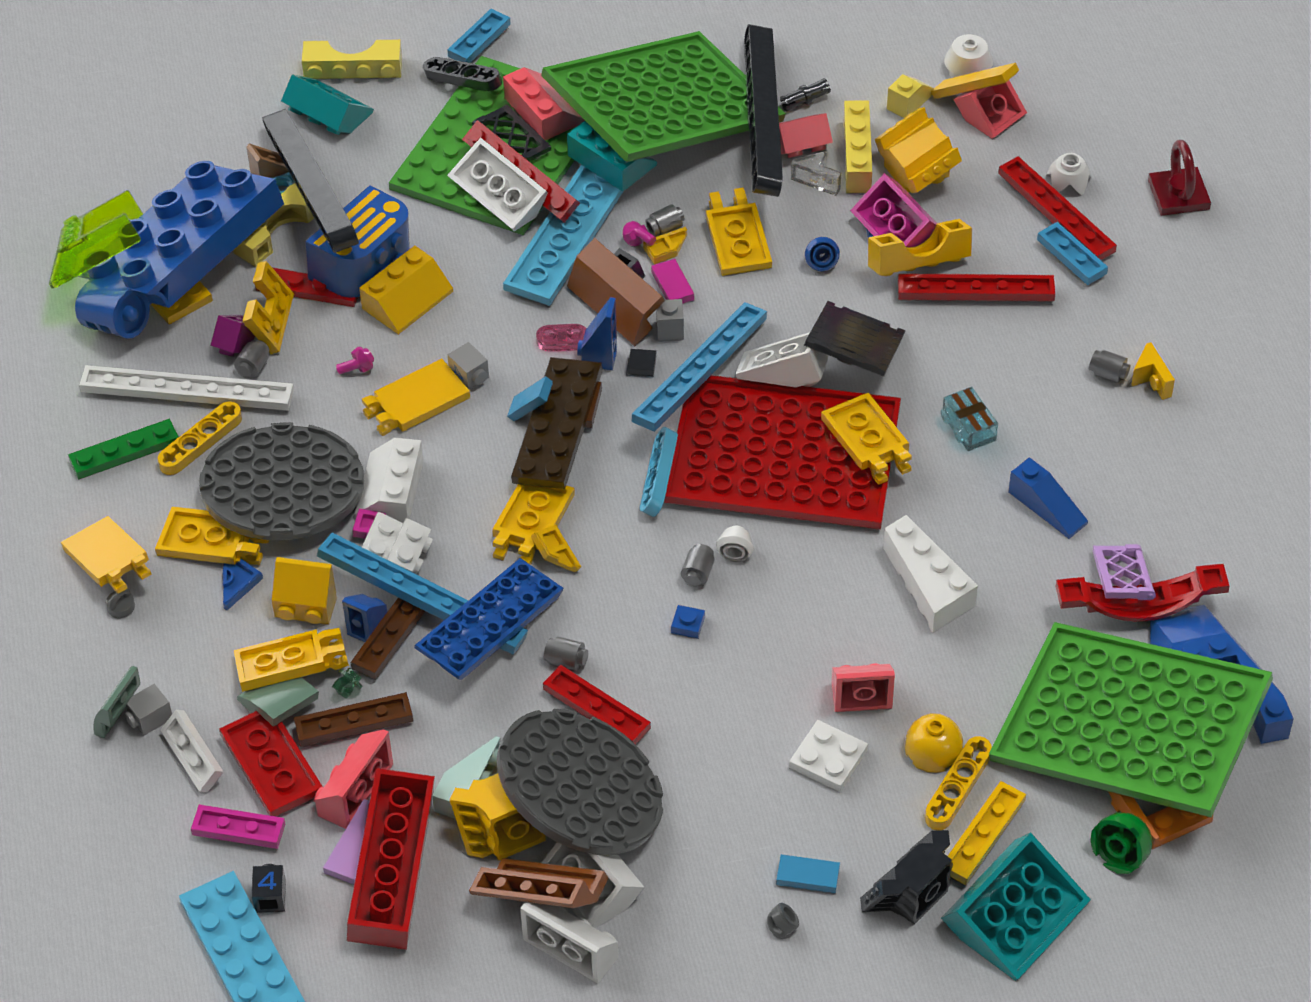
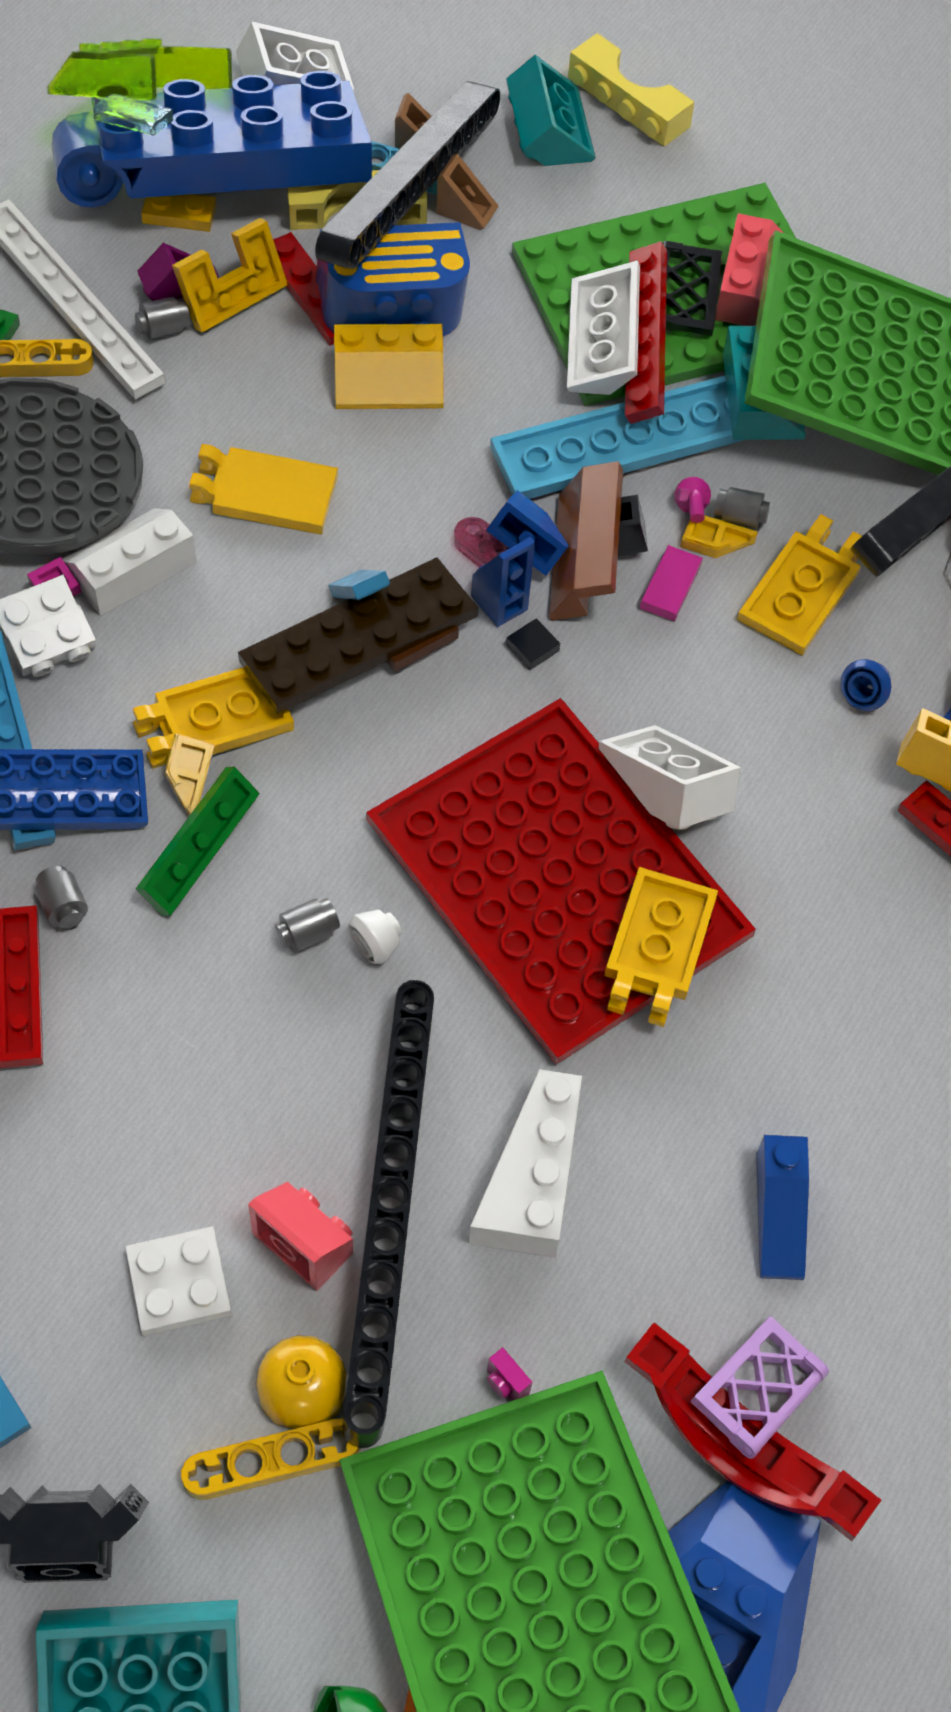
camera: 40 degrees right, 10 degrees up
(137, 256) = (133, 114): none -> clear light blue tile
(147, 177) = (288, 55): none -> white slope
(341, 179) = (463, 196): none -> medium nougat slope
(361, 360) = (259, 403): dark pink plate -> none
(469, 365) = (350, 497): light grey brick -> none
(479, 36) = (787, 161): dark azure plate -> none
(483, 77) = (716, 184): black beam -> none
(575, 309) = (524, 519): none -> blue slope
(599, 574) = (197, 841): none -> green plate
(658, 471) = (396, 780): medium azure beam -> none
(670, 320) = (611, 621): light grey brick -> none
(688, 621) = (227, 978): blue plate -> none
(698, 367) = (570, 699): dark azure plate -> none
(855, 338) = (776, 814): black door -> none
(888, 641) = (389, 1222): none -> black beam
(969, 419) = (806, 1024): clear light blue brick -> none
(985, 831) = (219, 1551): yellow plate -> none
(1017, 661) = (507, 1377): none -> dark pink plate

